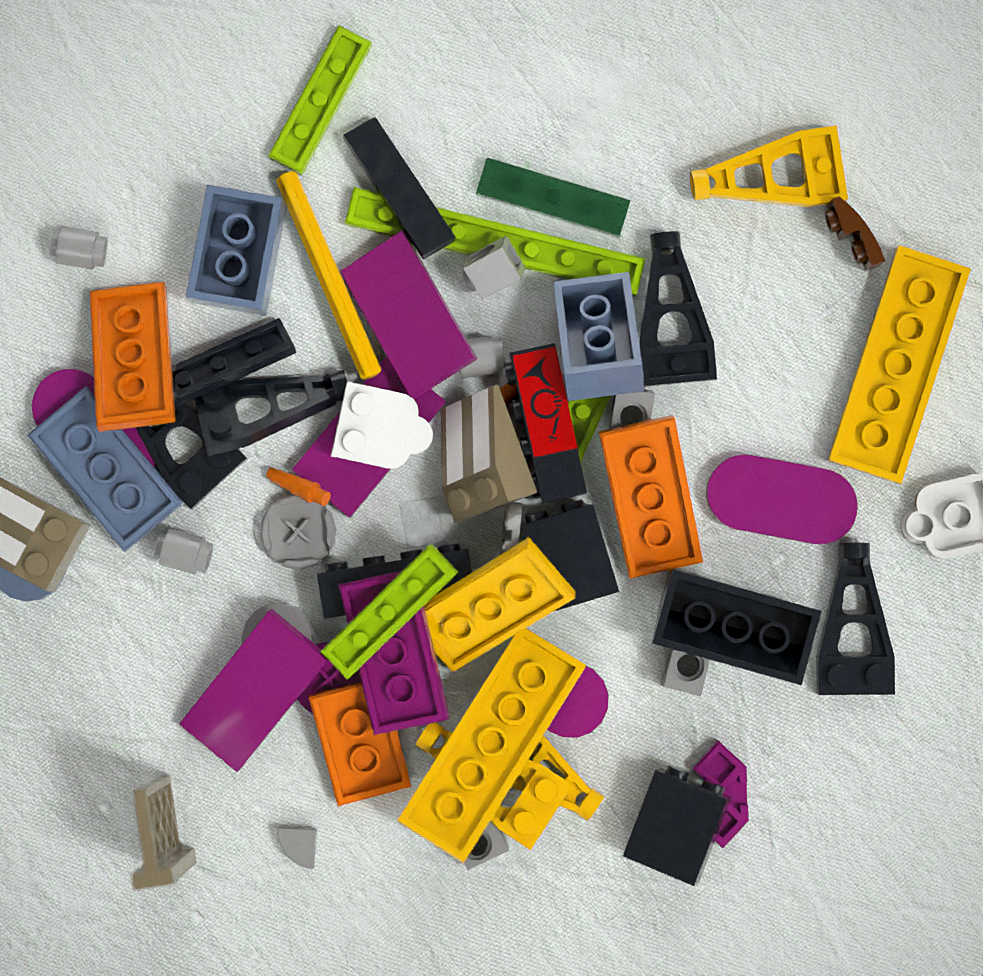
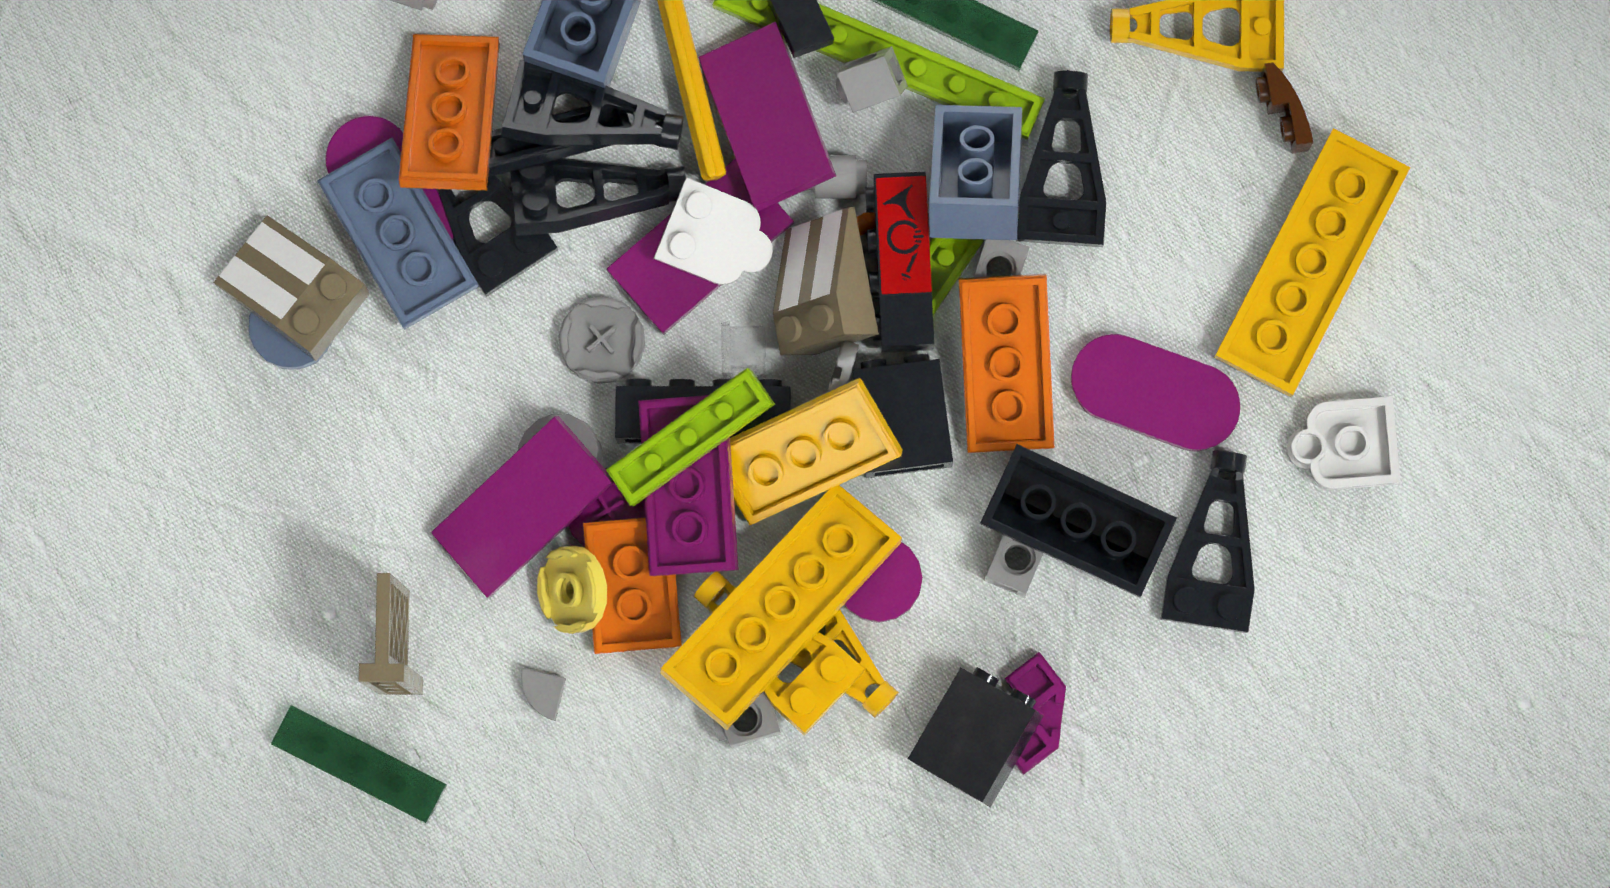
camera: 10 degrees right, 5 degrees down
(151, 933) = (359, 764): none -> clear green tile
(183, 551) = (469, 340): light grey brick -> none
(204, 331) = (533, 102): none -> black plate
(301, 487) = (613, 289): orange animal -> none
(309, 756) = (572, 589): none -> light yellow plate

